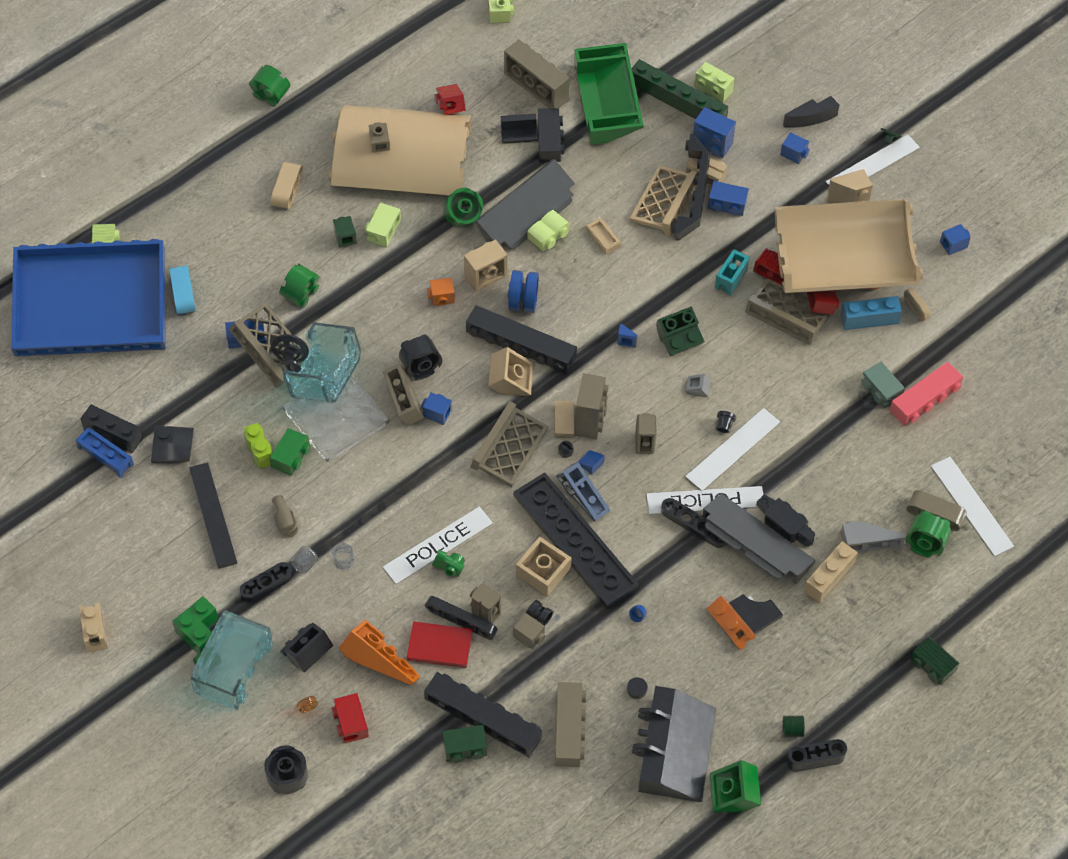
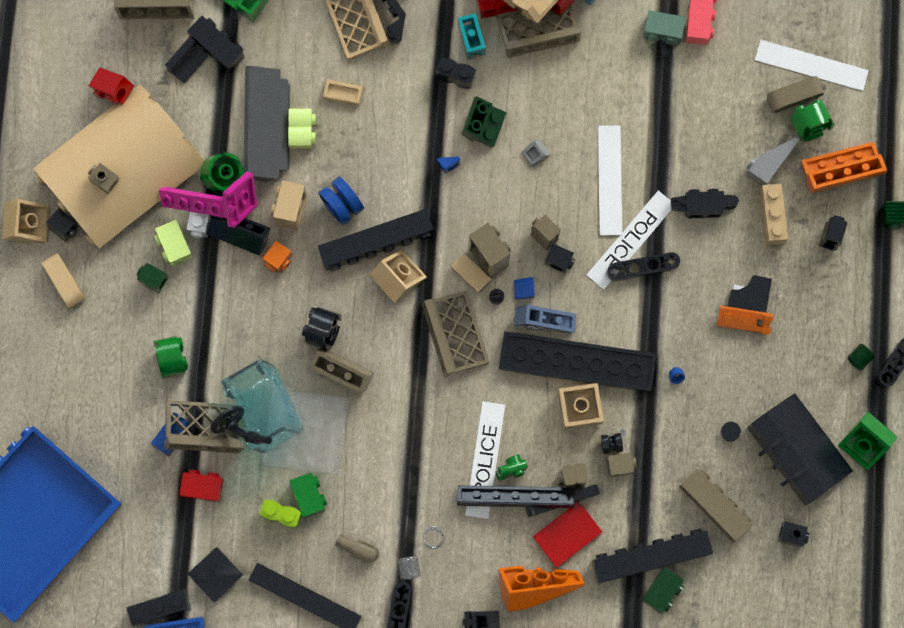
camera: 45 degrees left, 20 degrees up
(182, 289) = (83, 445): medium azure beam -> none
(227, 382) = (201, 487): none -> red brick
(303, 131) = (25, 221): none -> tan slope
(323, 152) = (62, 225): none -> black brick
(412, 227) = (198, 225): none -> white brick
(430, 581) = (516, 496): none -> black tile
(433, 252) = (246, 235): none -> black brick
(437, 408) = (374, 355): blue brick -> none
(448, 225) = (235, 204): none -> dark pink bracket
(605, 798) = (793, 534): none -> black brick
(637, 462) = (559, 258): none -> black brick
(695, 286) = (459, 74): none -> black brick
(725, 421) = (586, 165): black piece -> none
(759, 541) = (687, 240): dark grey slope -> none
(862, 621) = (833, 233): none -> black brick
(920, 587) = (843, 167): none -> orange brick

